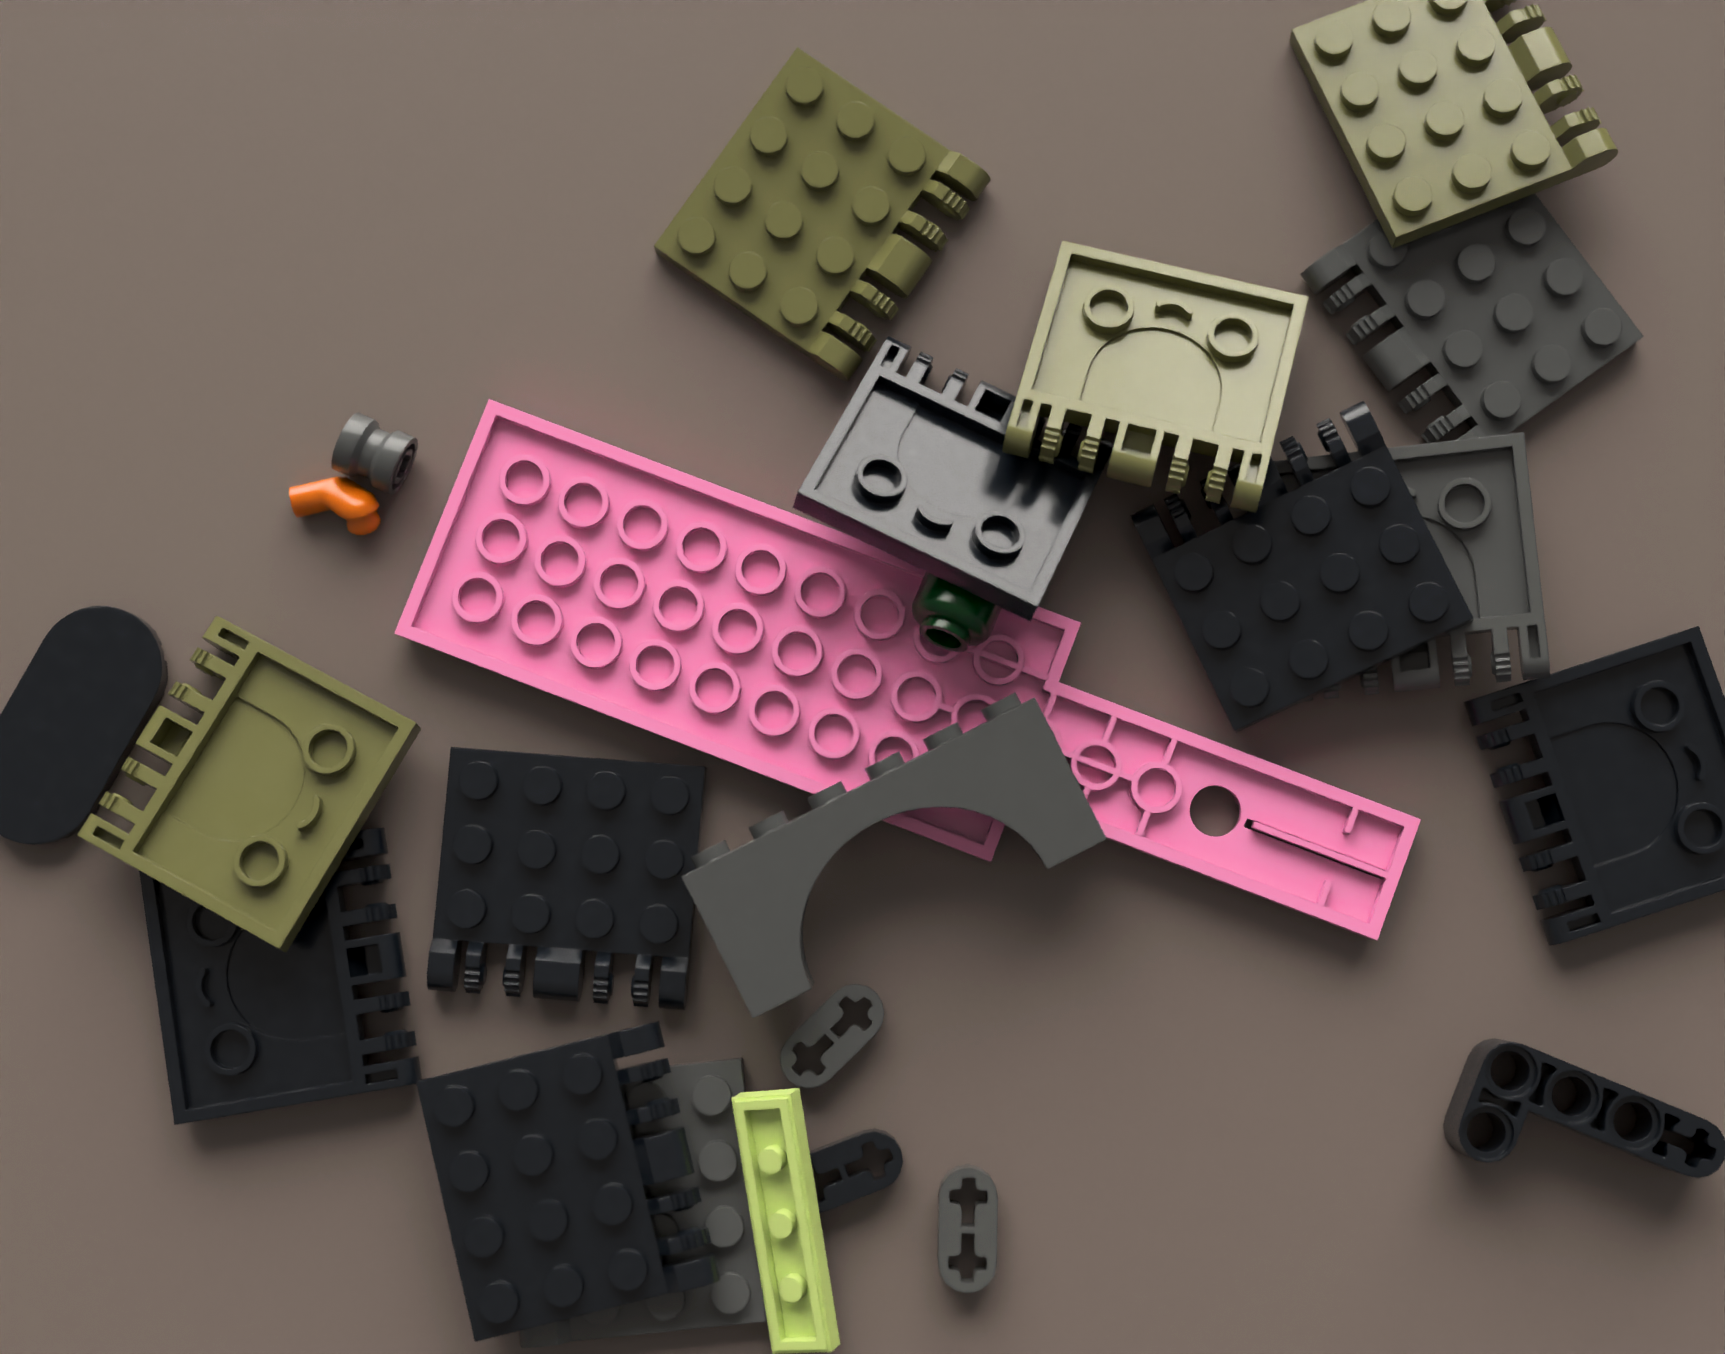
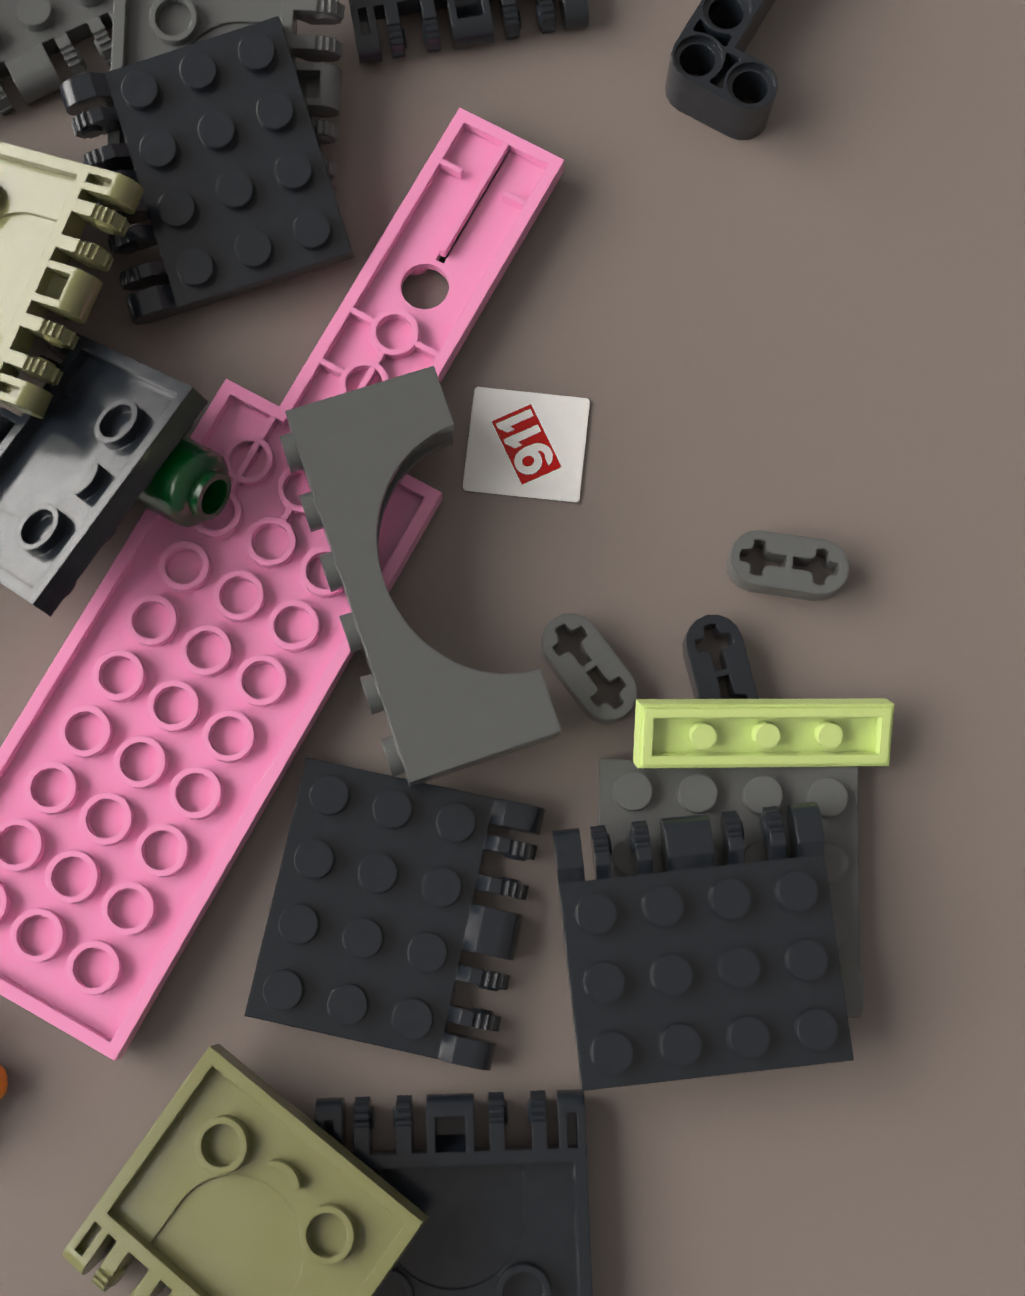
camera: 85 degrees left, 5 degrees down
(1063, 940) = (526, 444): none -> white sticker

